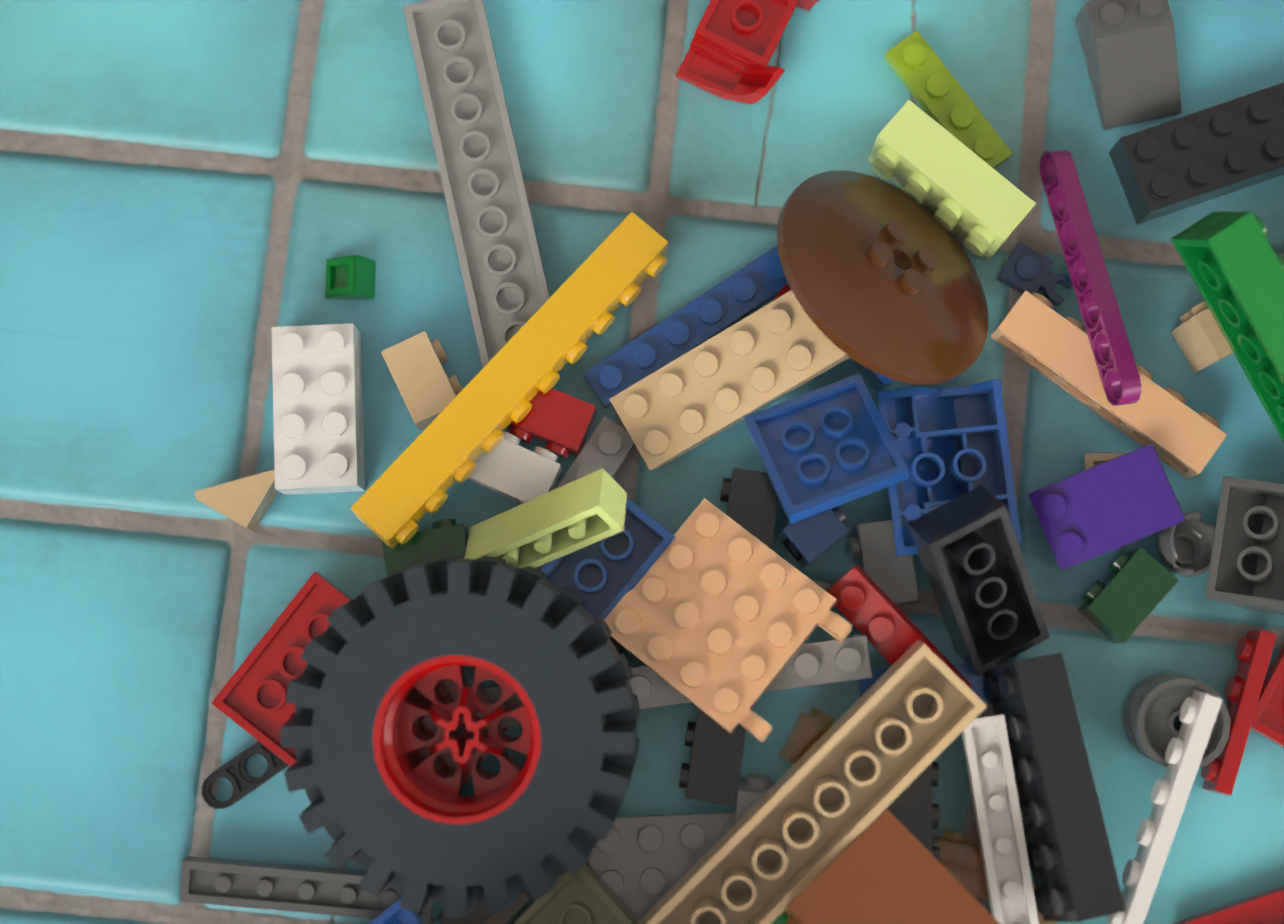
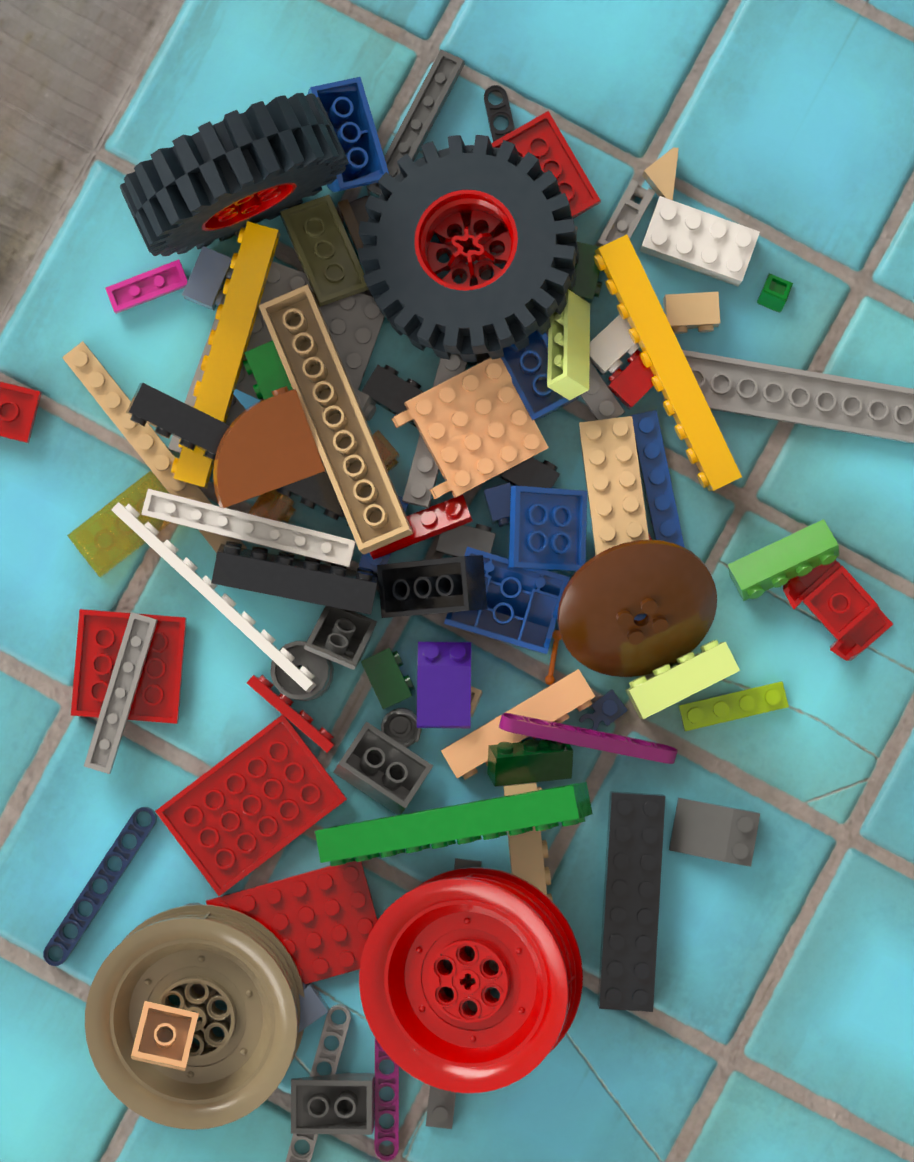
camera: 110 degrees right, 5 degrees up
(320, 528) = (627, 213): none -> light grey plate
(721, 112) = (784, 560): none -> bright green brick
(1022, 368) = (549, 679): none -> orange hinge
(1117, 682) = (341, 636): none -> dark grey slope
(1163, 344) = (529, 762): none -> dark green brick

